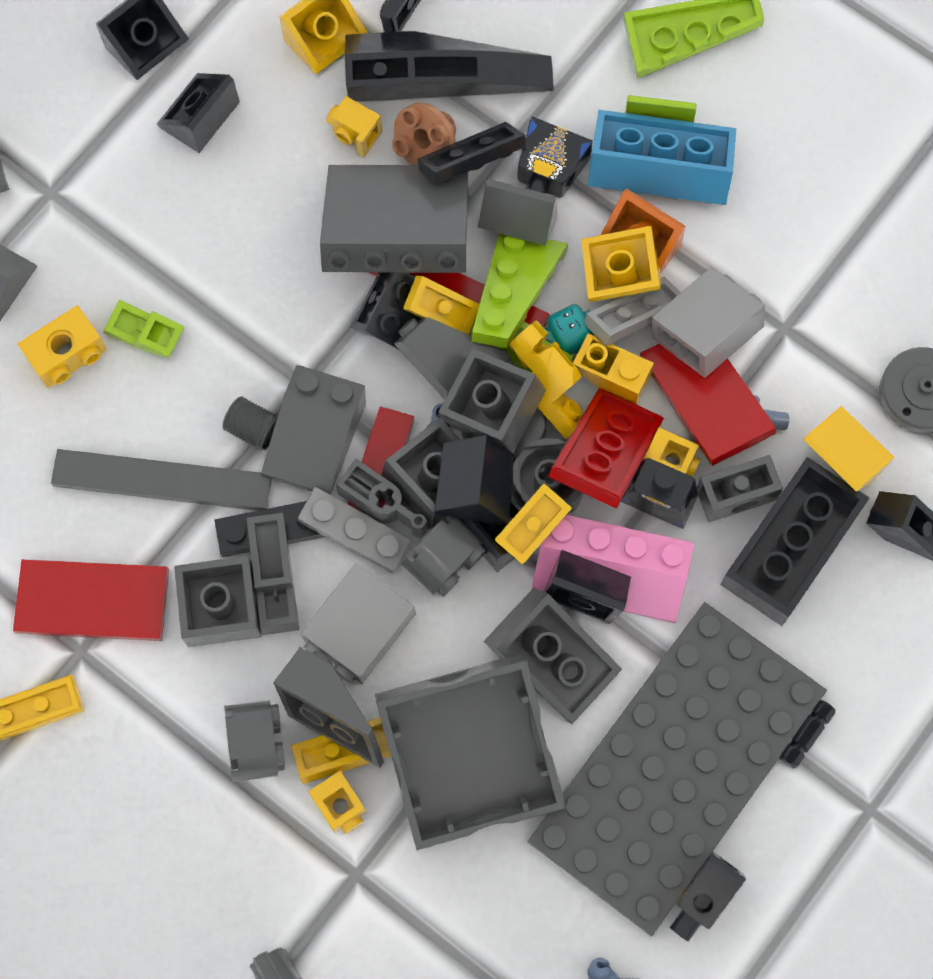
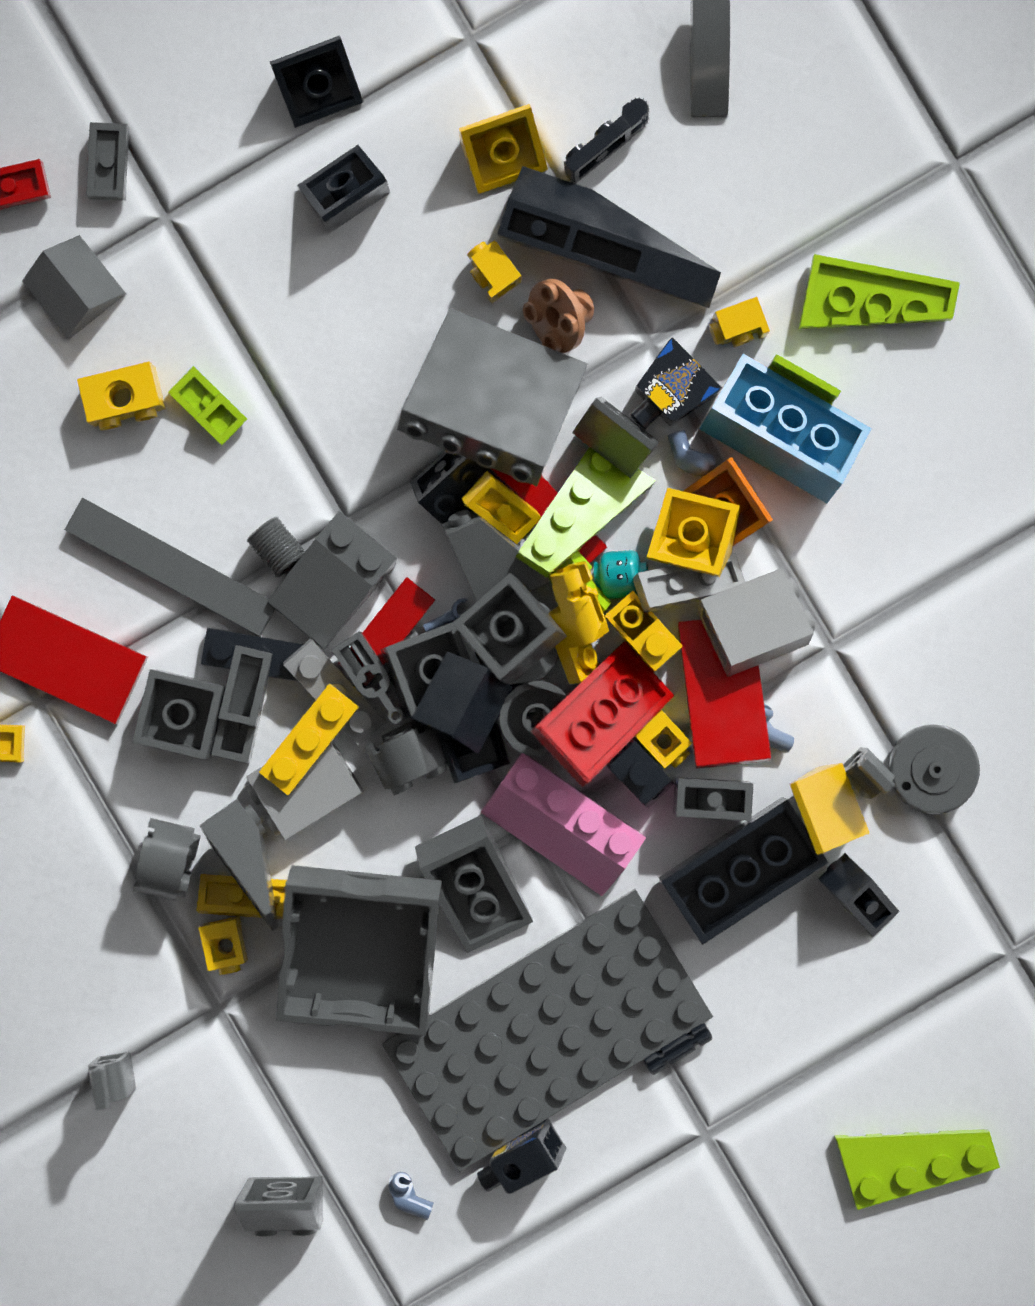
camera: 20 degrees right, 15 degrees up
(346, 574) = (309, 739): none -> yellow plate
(471, 153) = (594, 356): black plate -> none
(533, 523) = (500, 764): yellow plate -> none
(585, 89) = (739, 323): none -> yellow brick
(587, 215) = (687, 458): none -> sand blue arm
(588, 587) = (531, 838): black slope -> none
(871, 406) = (868, 773): none -> dark grey piece

